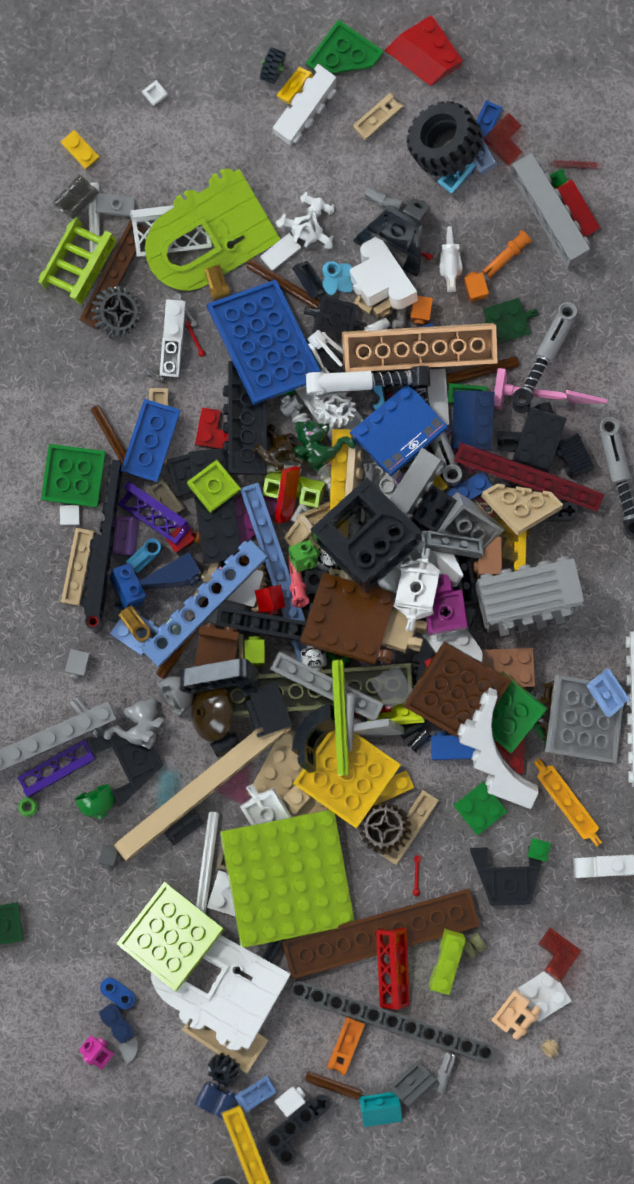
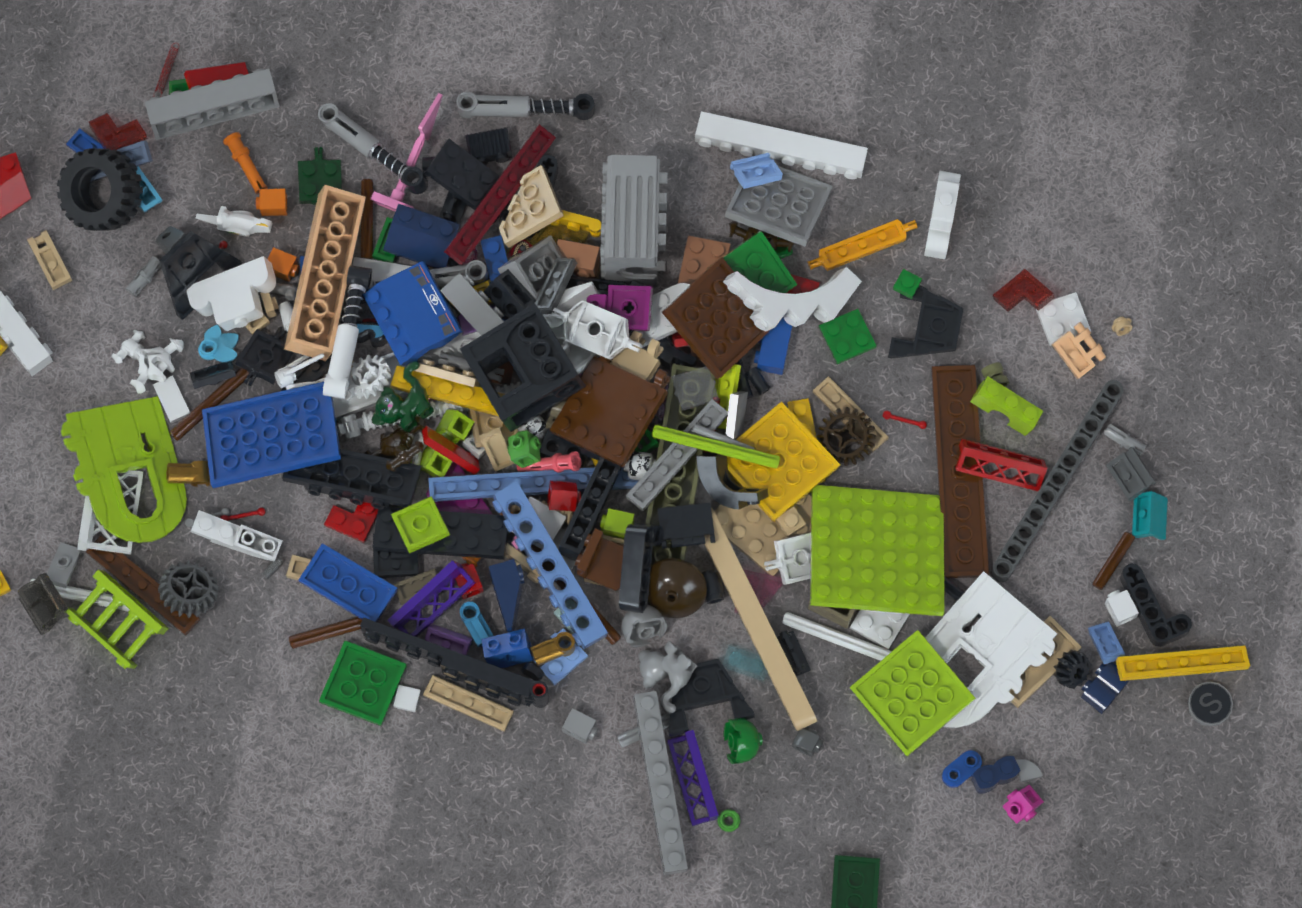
camera: 80 degrees left, 10 degrees down
(346, 1045) = (1073, 536): orange plate -> none

